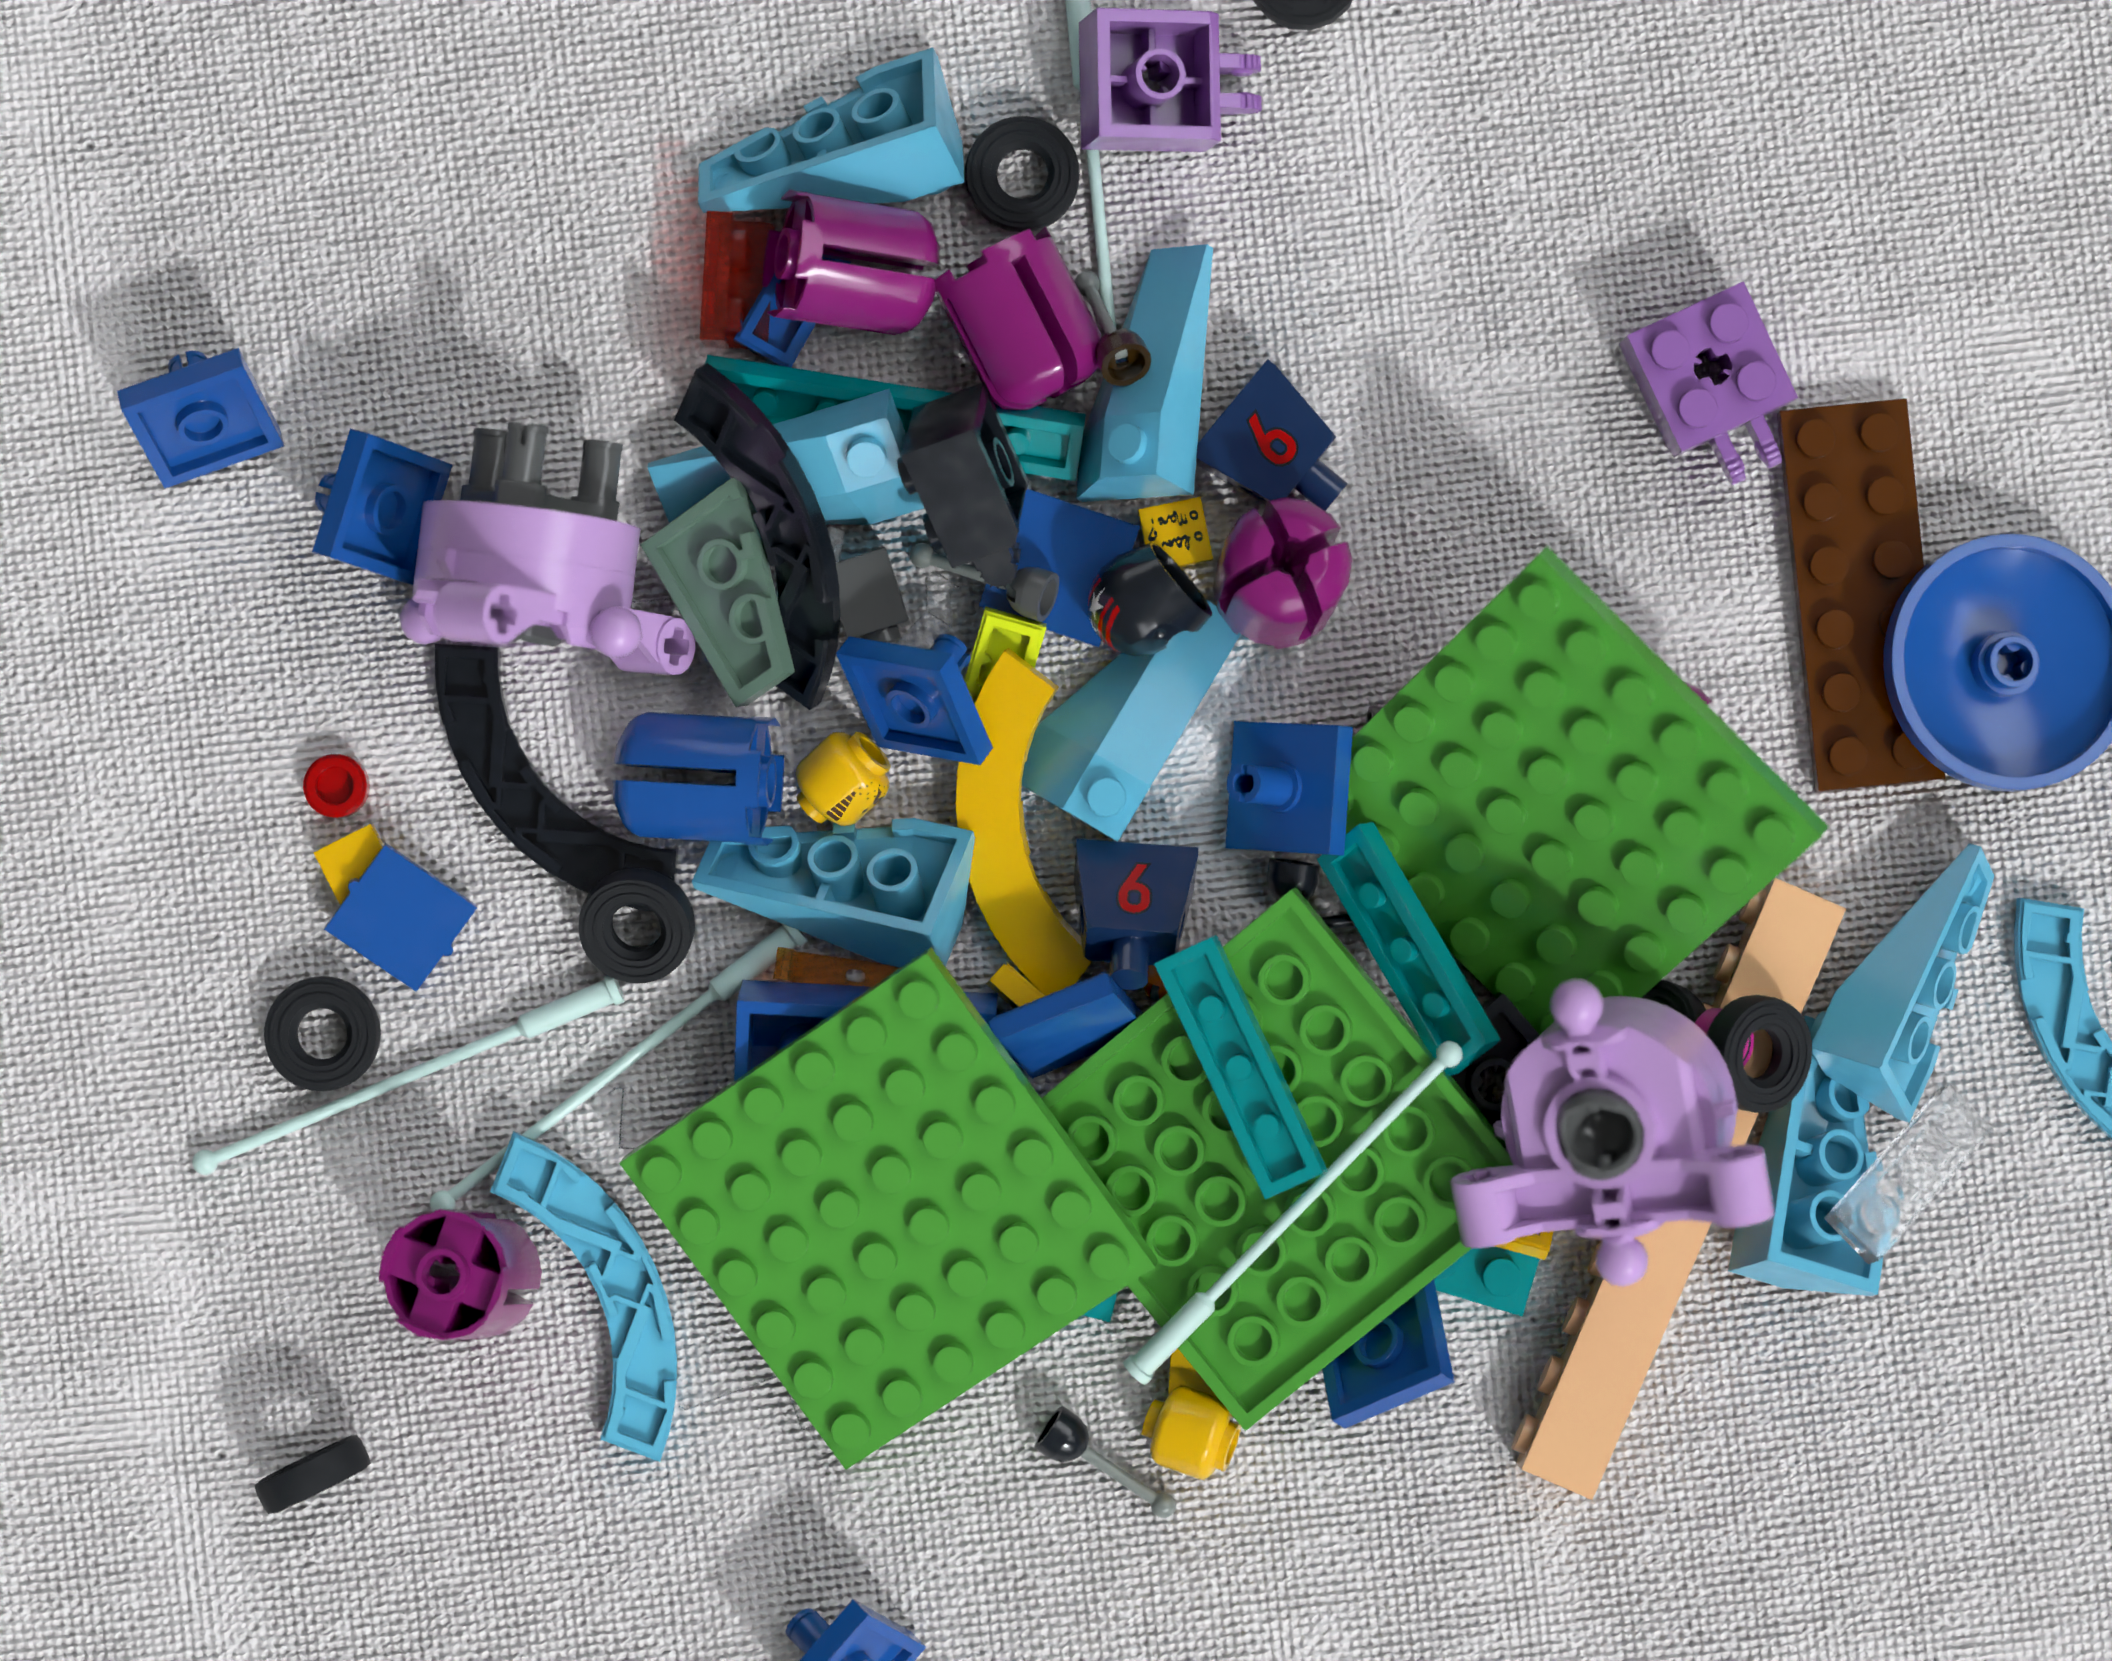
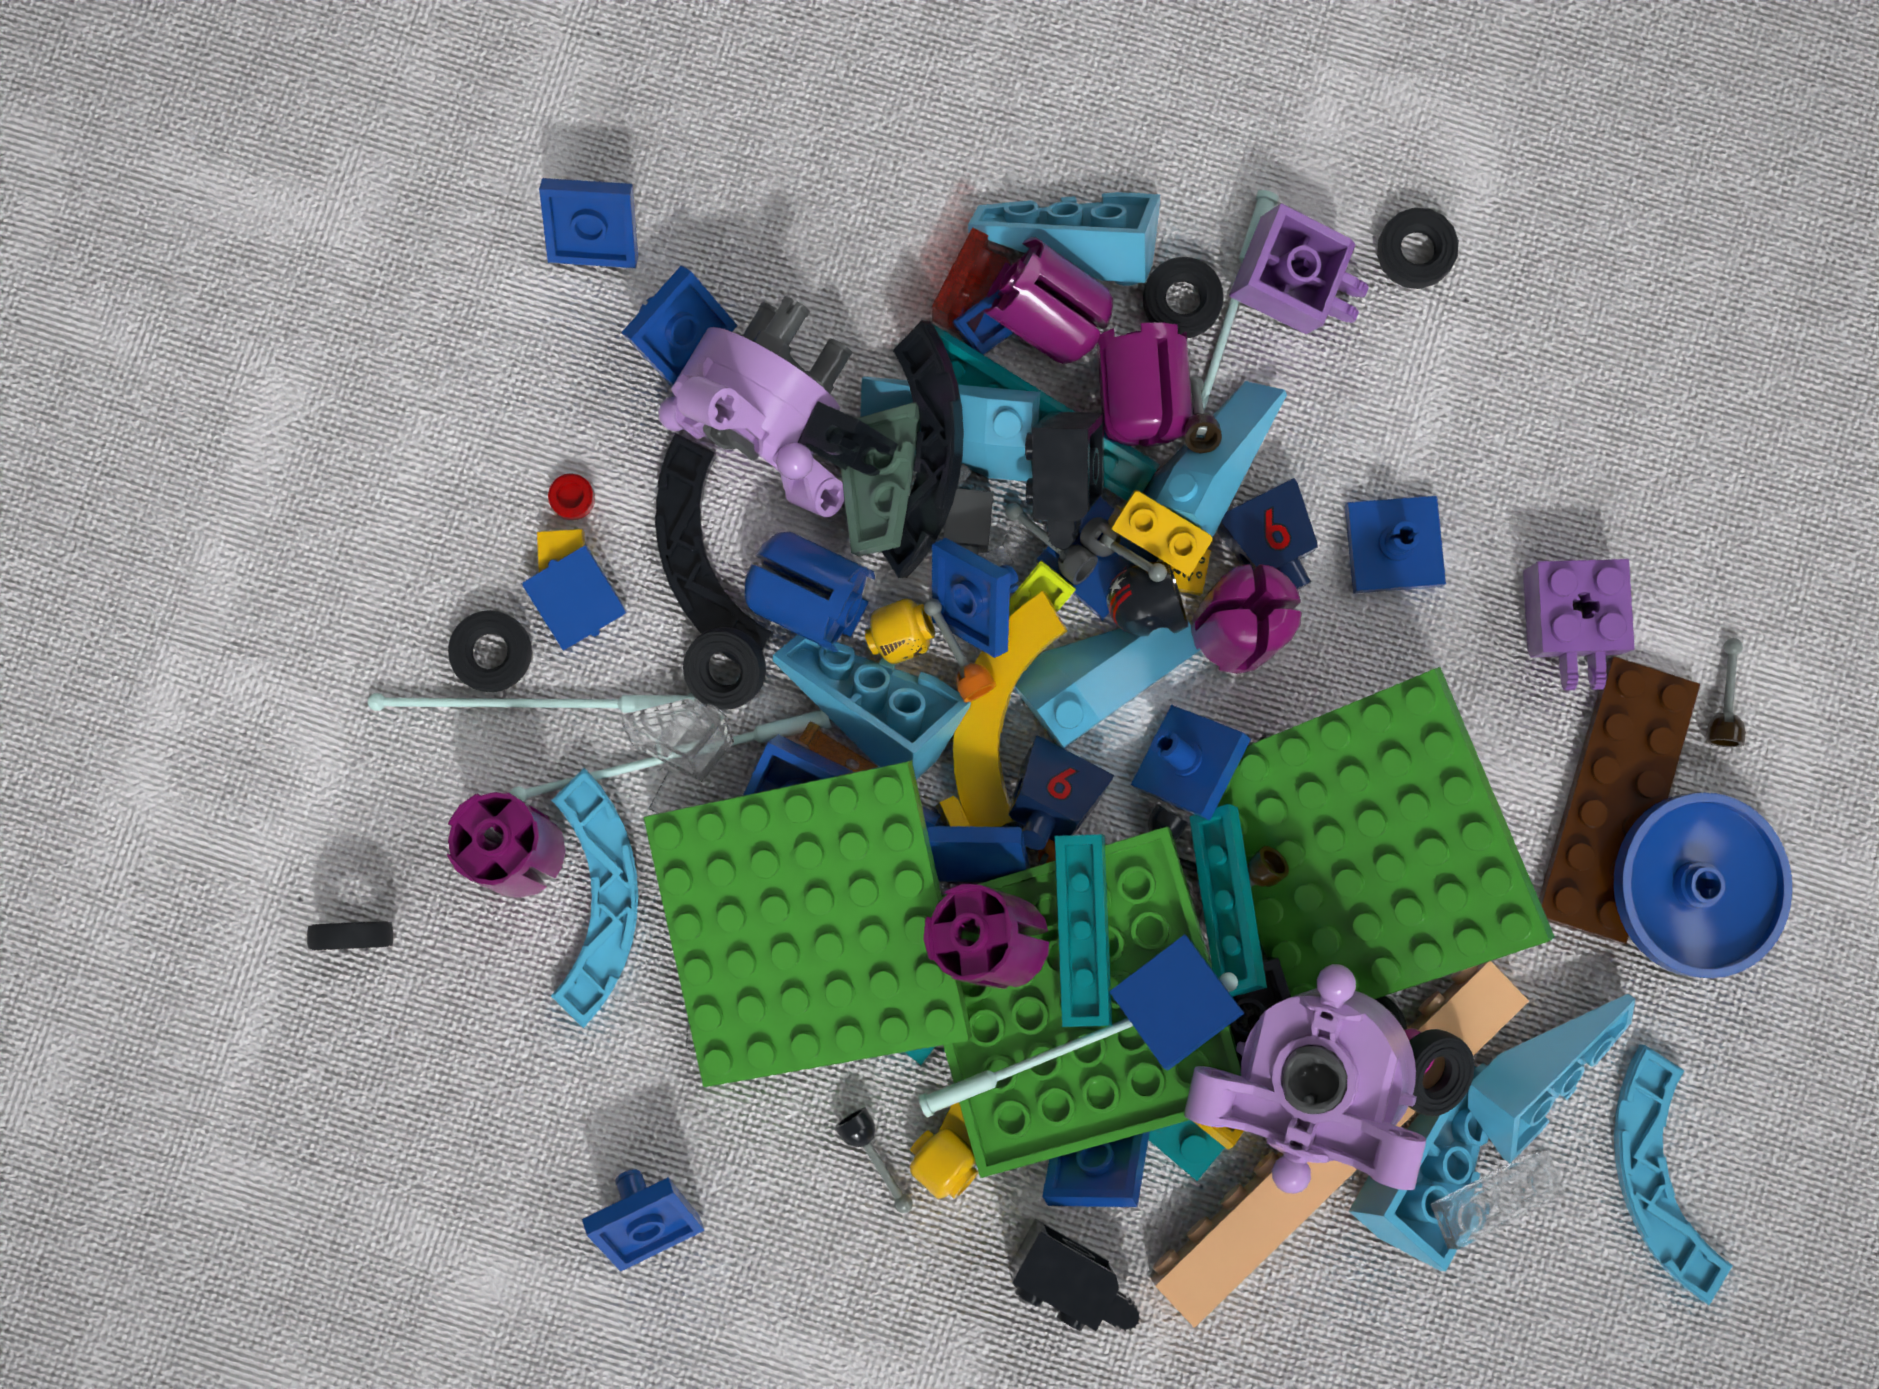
camera: 15 degrees right, 5 degrees down
(620, 1036) = (681, 735): none -> clear slope
(663, 569) = (844, 439): none -> black hinge
(962, 803) = (972, 679): none -> hinge
(1064, 552) = (1110, 543): none -> hinge
(1121, 1107) = (986, 937): none -> magenta cylinder
(1123, 512) = (1160, 532): none -> yellow bracket
(1394, 1108) = (1176, 1002): none -> blue tile
(1412, 1508) = (1071, 1280): none -> black hinge
(1437, 383) = (1395, 544): none -> blue tile
(1441, 884) = (1265, 868): none -> dark brown hinge
(1964, 440) = (1727, 728): none -> hinge

